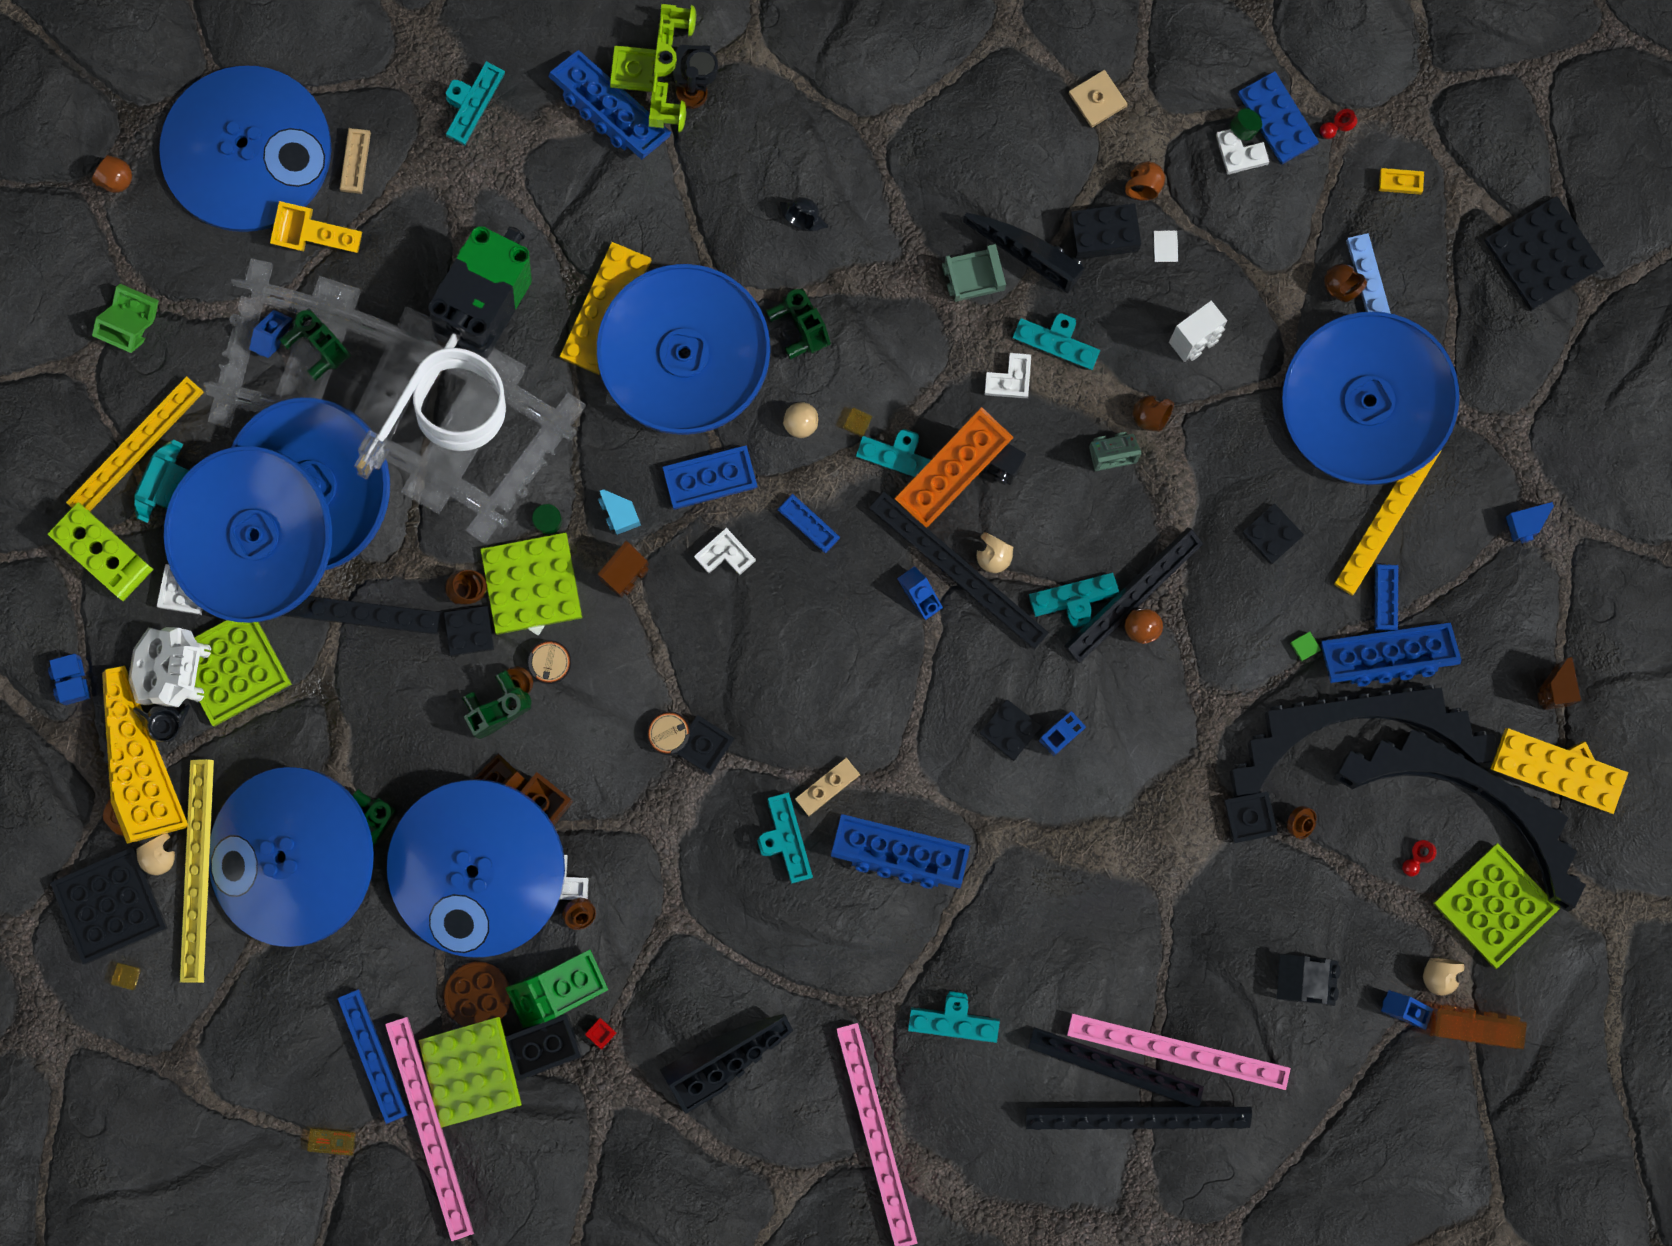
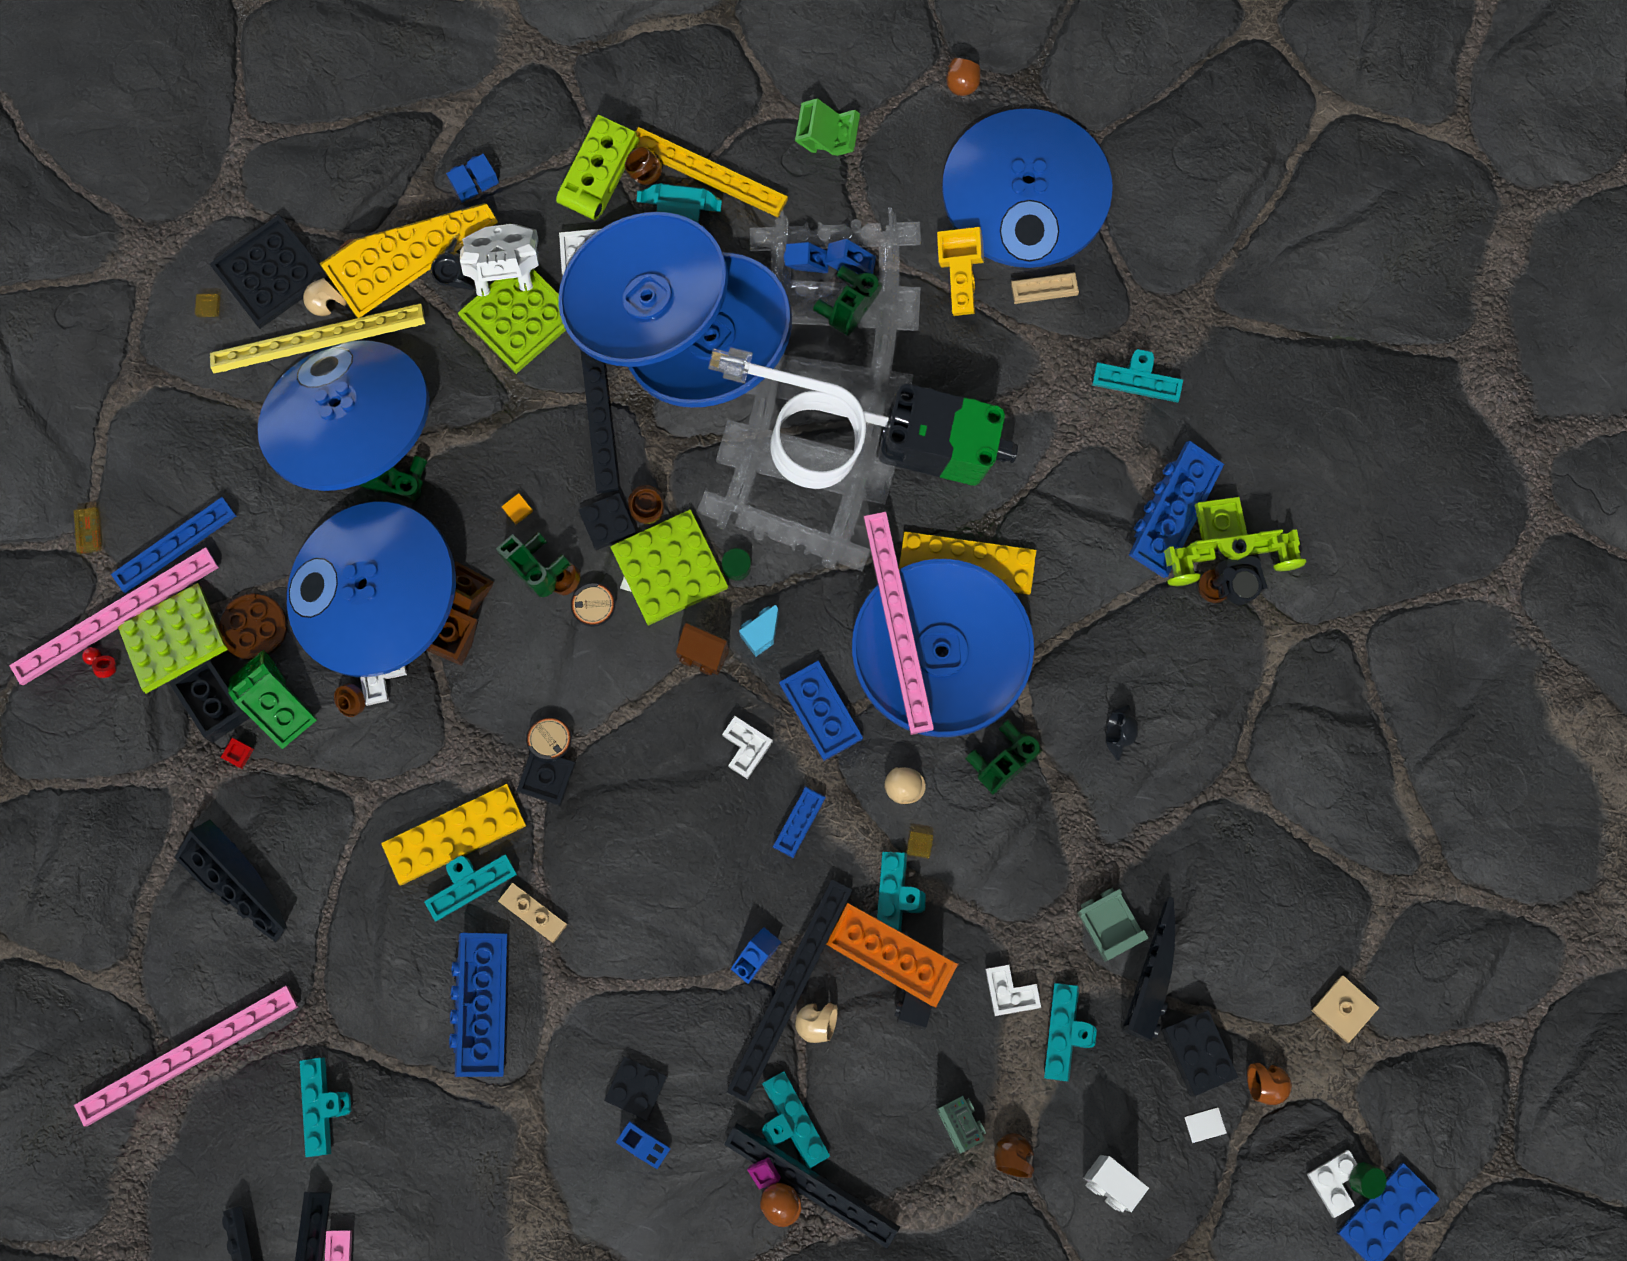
camera: 80 degrees right, 5 degrees down
(112, 506) = (643, 166): none -> reddish brown helmet
(258, 374) = (805, 257): none -> blue slope
(431, 714) = (517, 509): none -> light orange tile
(464, 1159) = (102, 665): none -> red plate
(650, 380) = (898, 623): none -> bright pink plate
(734, 844) = (453, 834): none -> yellow plate
(1113, 633) = (764, 1173): none -> magenta tile

